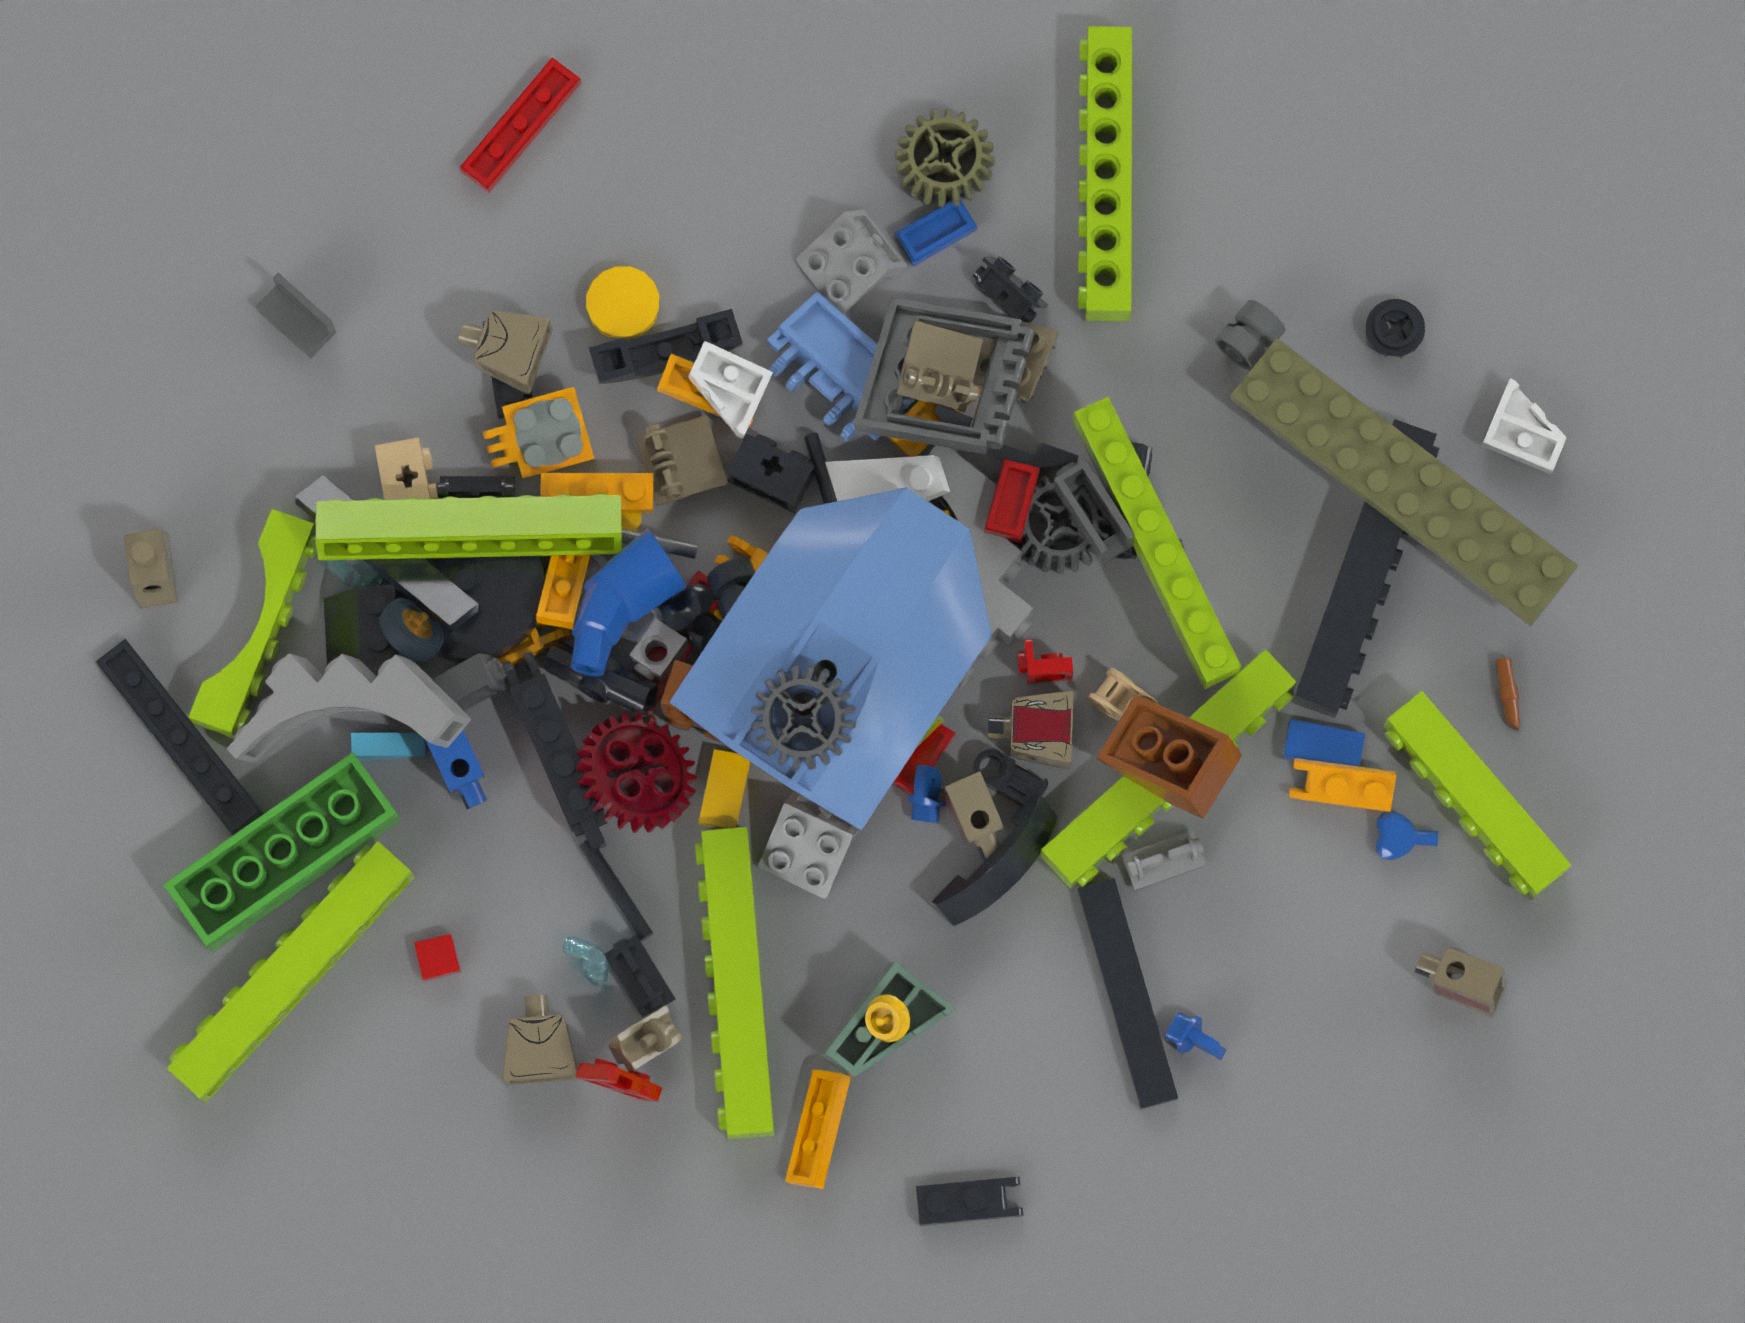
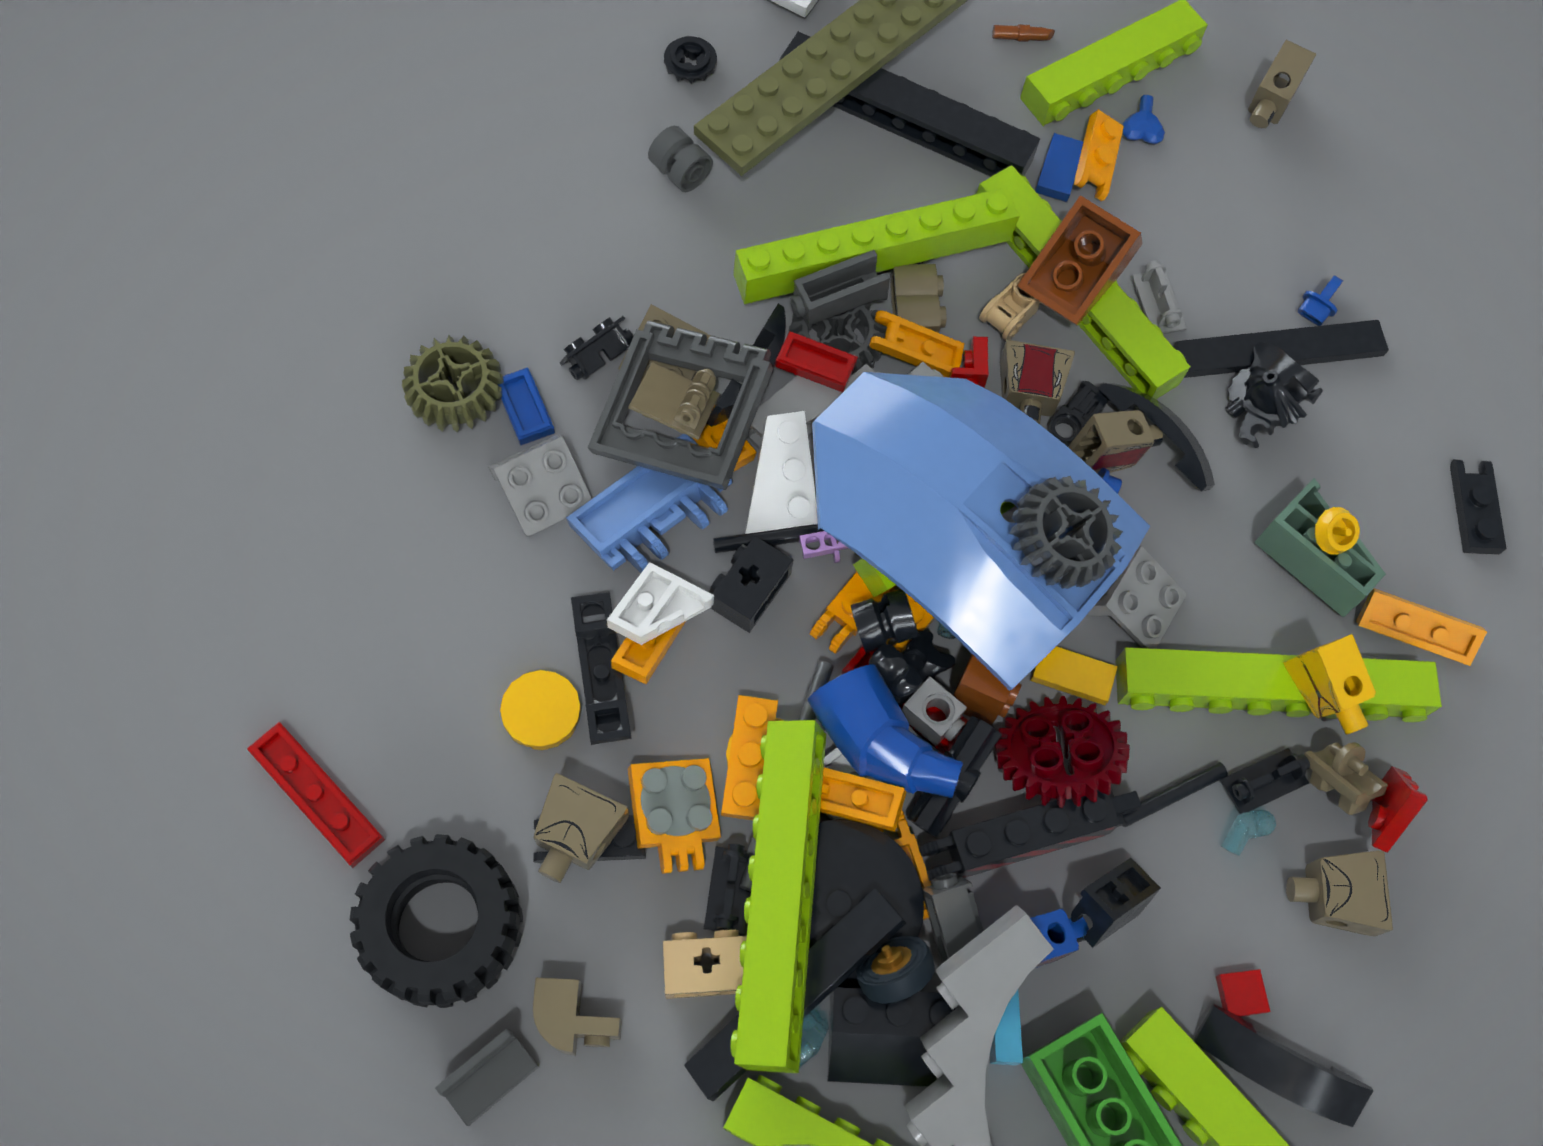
camera: 90 degrees left, 10 degrees down
(346, 365) = (559, 1019): none -> dark tan brick
(369, 987) = (1281, 1068): none -> black slope
(404, 203) = (397, 883): none -> black tyre
(500, 826) = (1115, 900): none -> black hinge
(682, 459) = (720, 670): dark tan hinge -> none
(739, 1007) = (1334, 681): none -> yellow torso
(1056, 605) = (917, 344): none -> light orange hinge
(1059, 974) = (1270, 392): none -> black helmet
(1114, 47) = (484, 237): lime brick -> none
(1116, 601) = (917, 294): none -> dark tan brick

